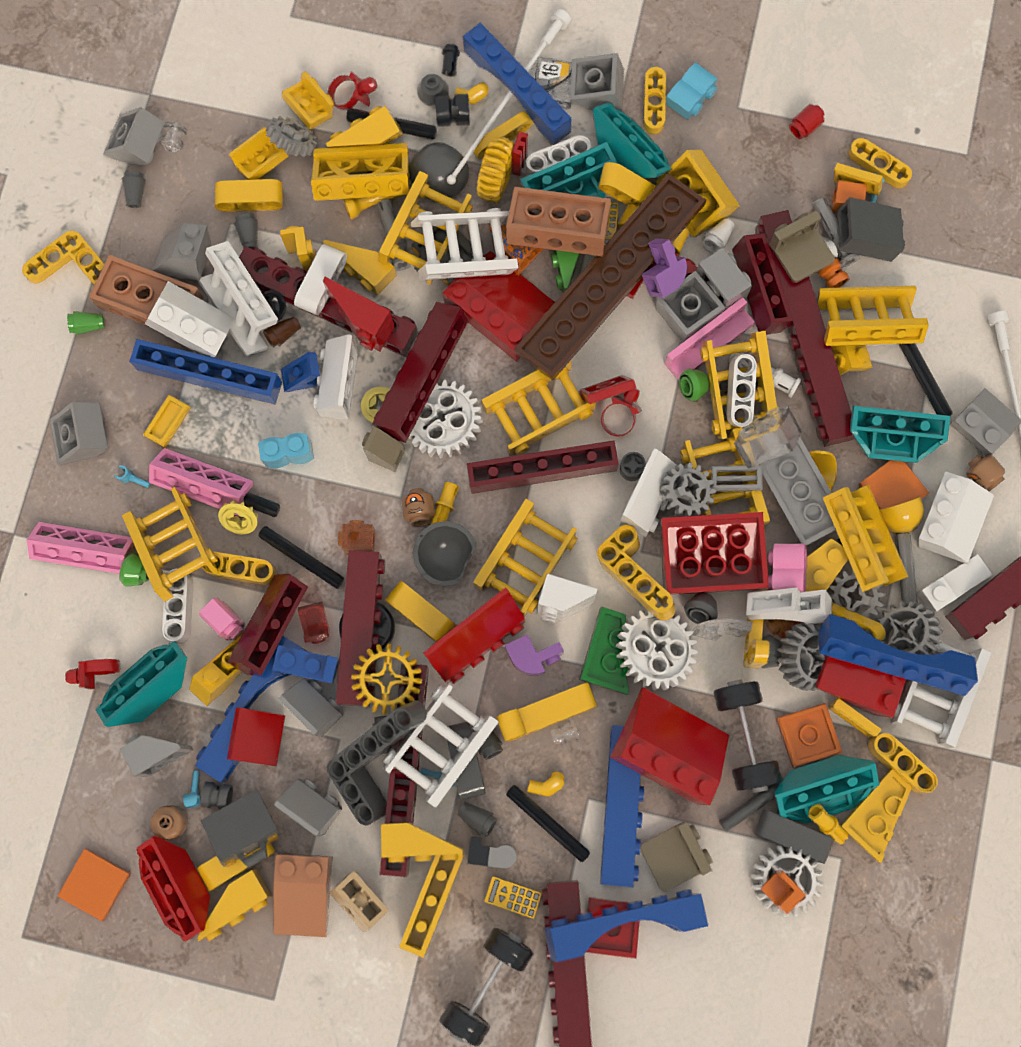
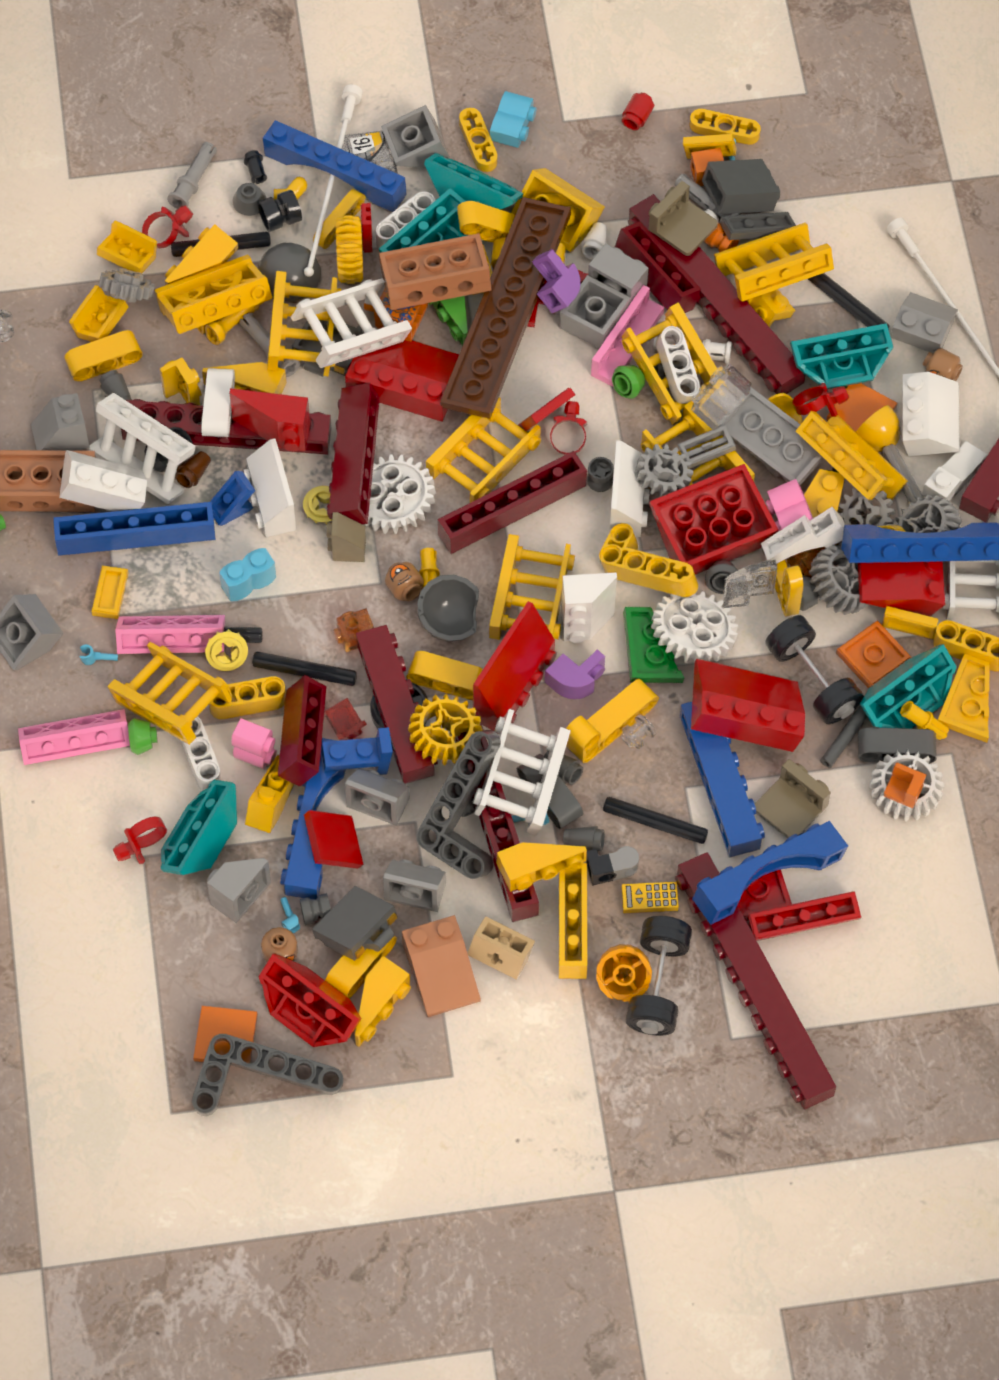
camera: 25 degrees left, 15 degrees down
(106, 936) = (260, 1066): none -> dark grey beam
(386, 56) = (188, 183): none -> light grey pin
(456, 971) = (623, 972): none -> light orange cylinder
(549, 787) = (642, 787): yellow arm -> none
(641, 975) = (804, 916): none -> red brick
(868, 471) = (838, 395): none -> red piece
(869, 272) = (755, 225): none -> dark grey tile

